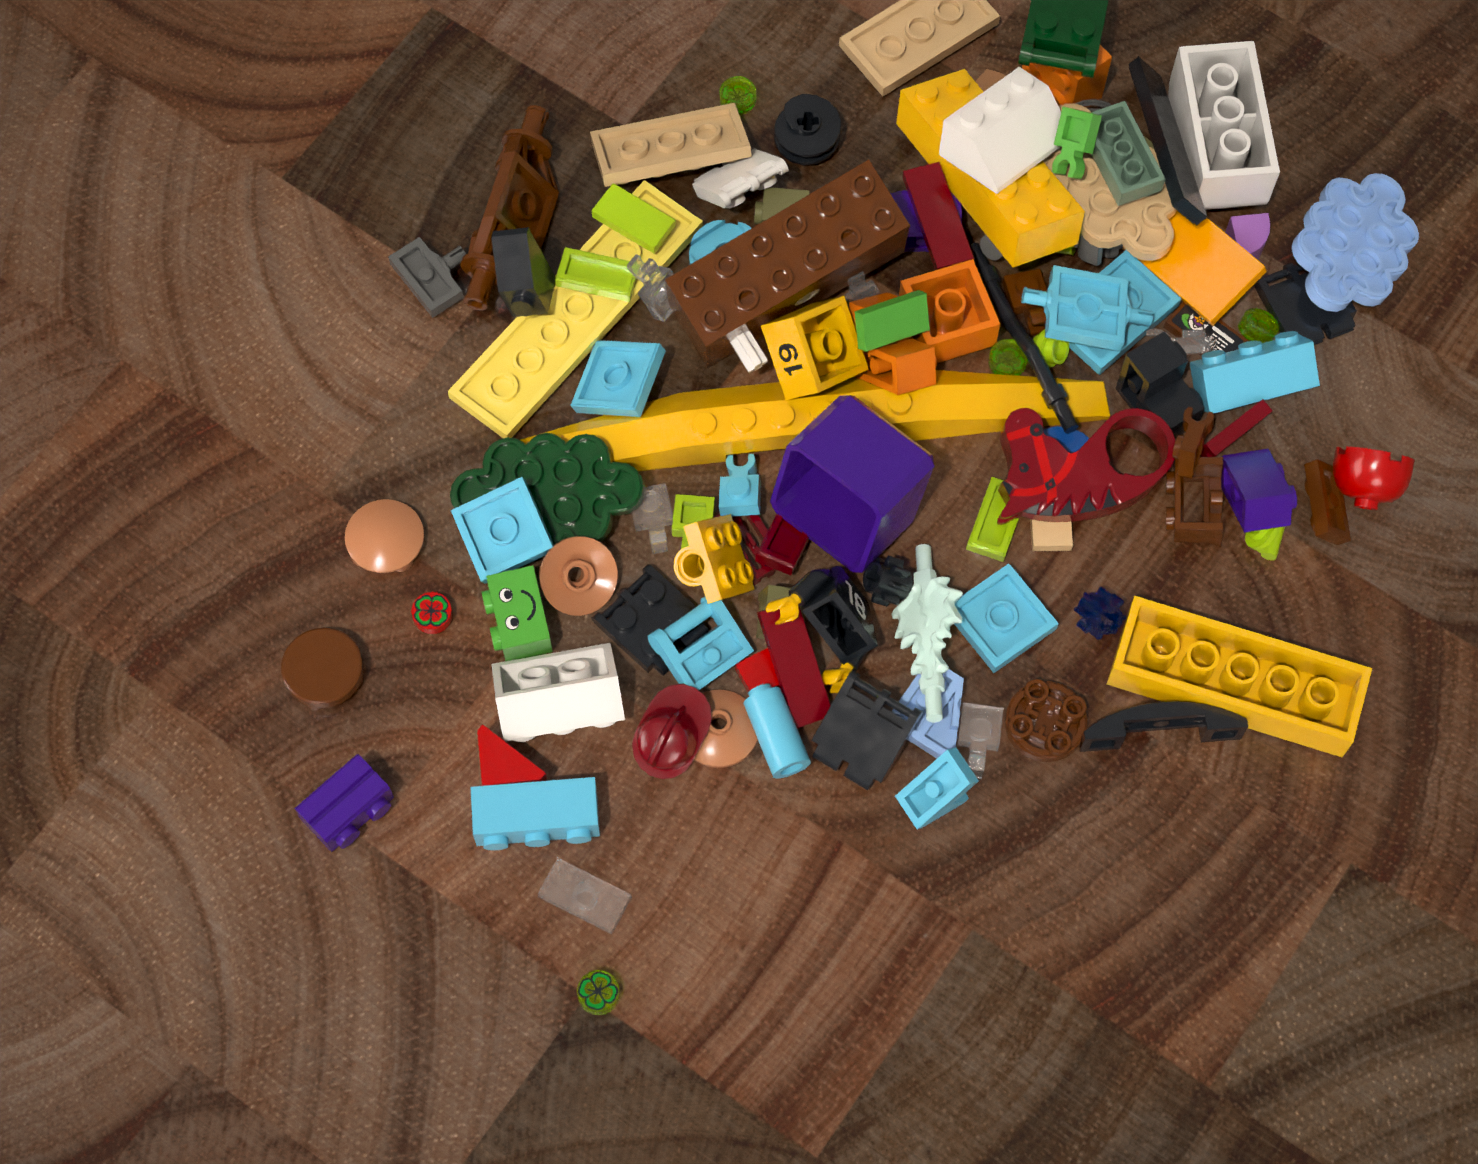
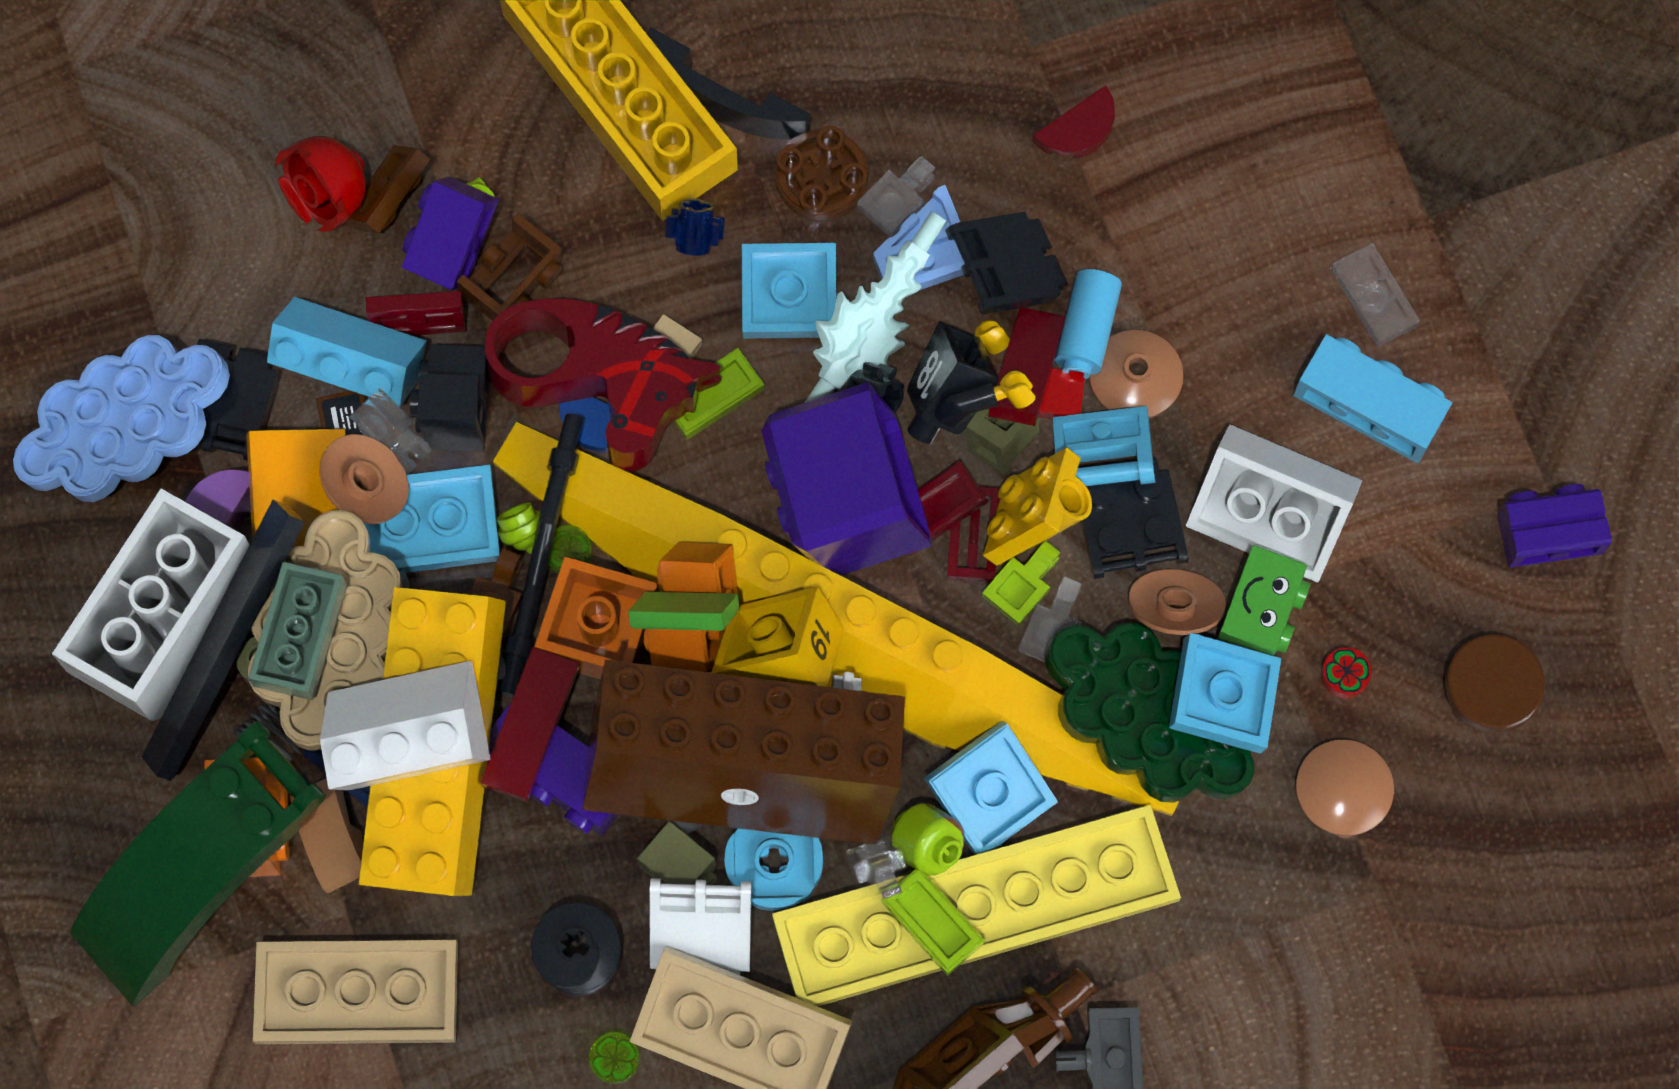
camera: 145 degrees left, 5 degrees up
(503, 763) = (1374, 458): red slope -> none
(522, 272) = (1023, 953): black slope -> none
(598, 992) = (1417, 206): tile -> none
(633, 218) = (847, 961): lime tile -> none
(636, 319) = (928, 838): none -> lime head
(671, 731) = (1190, 387): dark red piece -> none
(741, 489) = (951, 582): medium azure plate -> none
(888, 882) = (1081, 128): none -> dark red tile
(937, 789) = (977, 170): medium azure slope -> none
(1075, 135) = (335, 667): bright green plate -> none
(1086, 308) = (459, 520): medium azure plate -> none
(1149, 289) = (373, 468): none -> nougat dish
(1190, 446) = (485, 300): reddish brown plate -> none
(1258, 325) = (292, 407): clear neon green tile -> none

